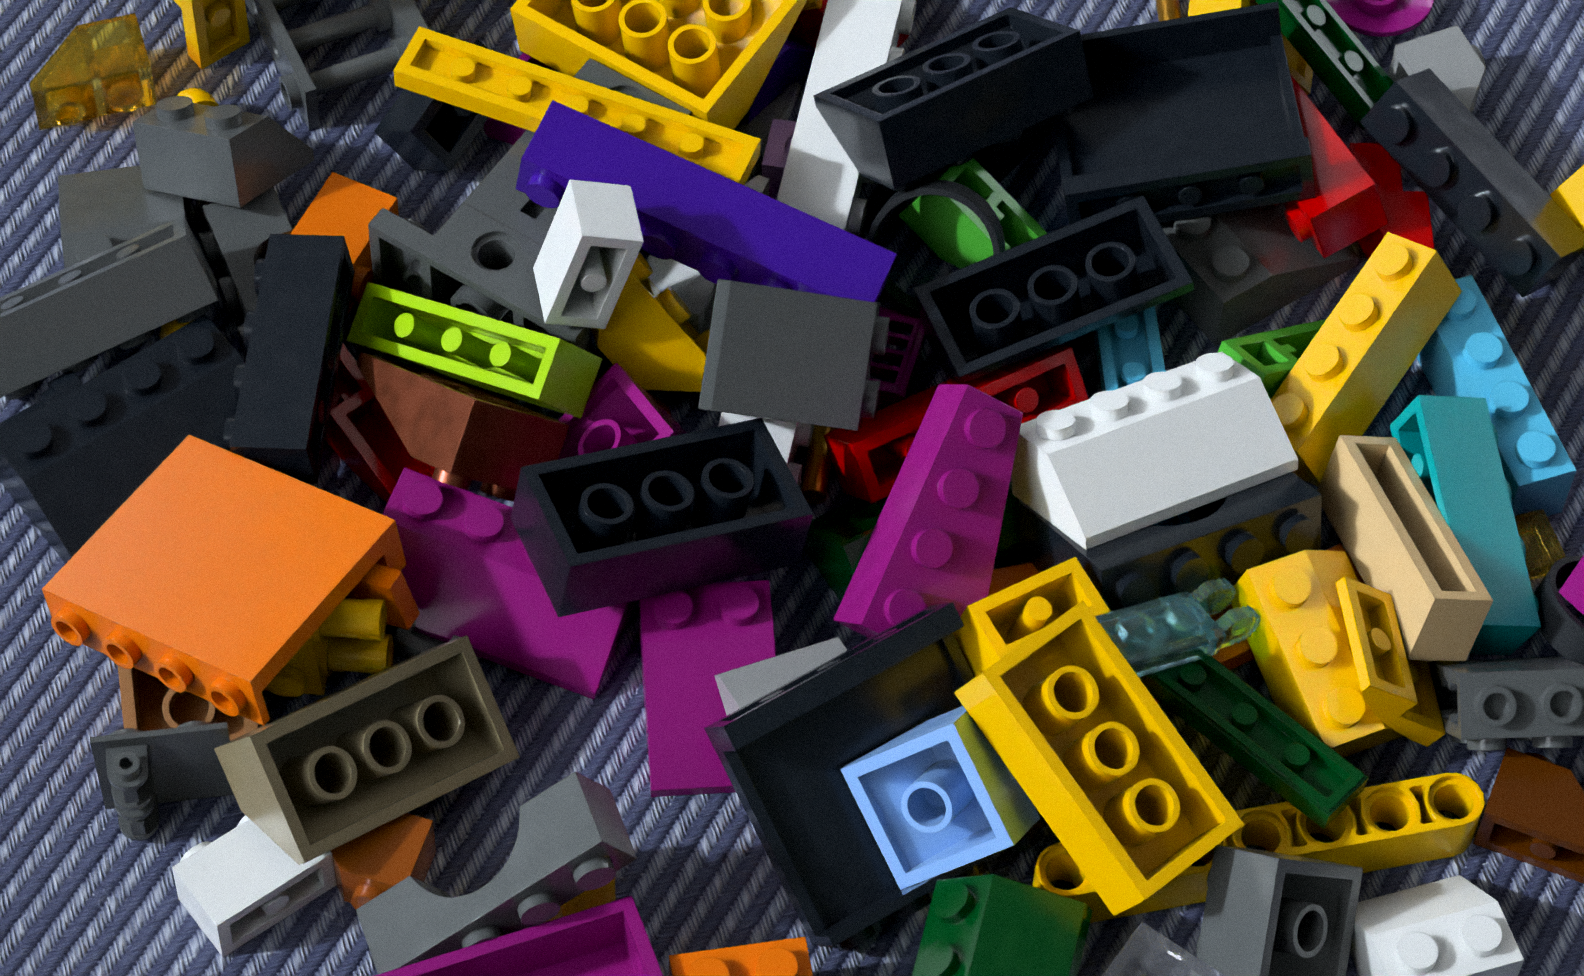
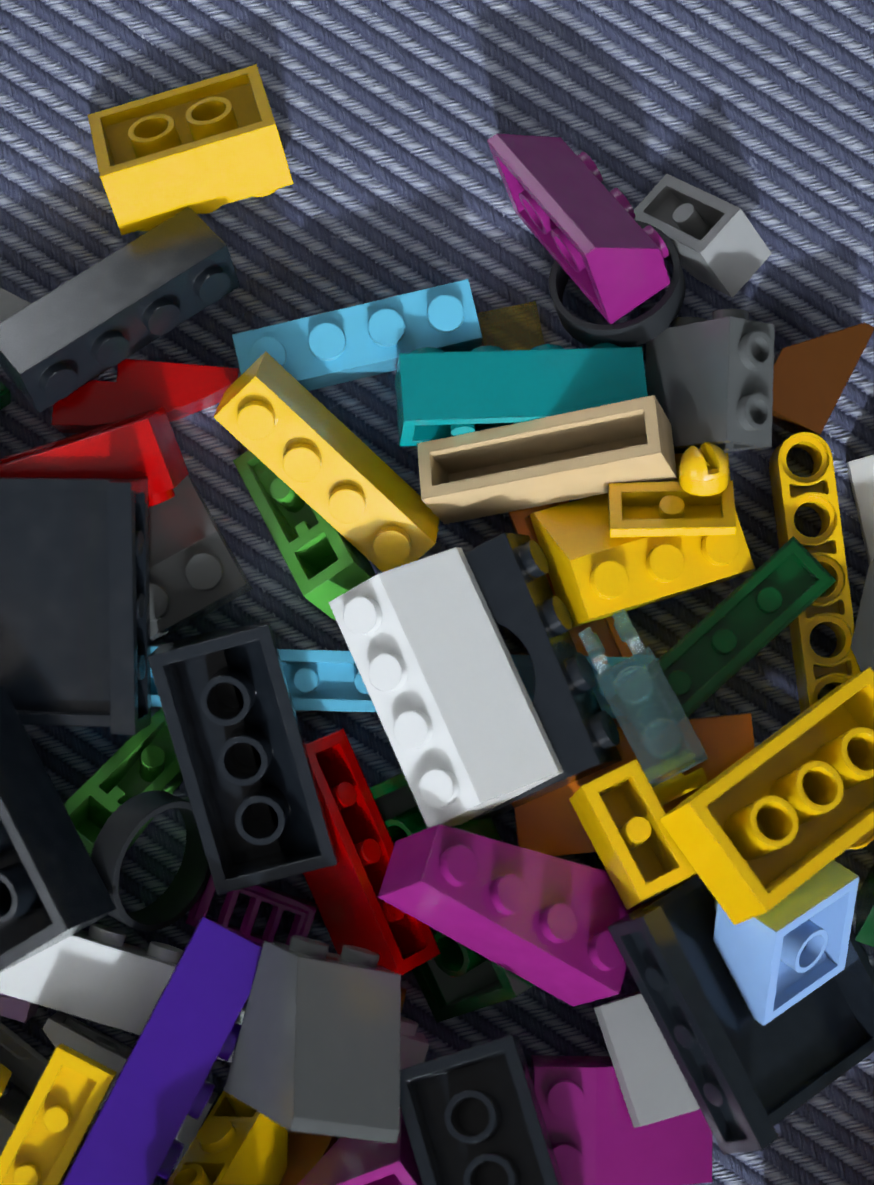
camera: 80 degrees left, 30 degrees up
(1423, 670) = (704, 470): none -> yellow hinge

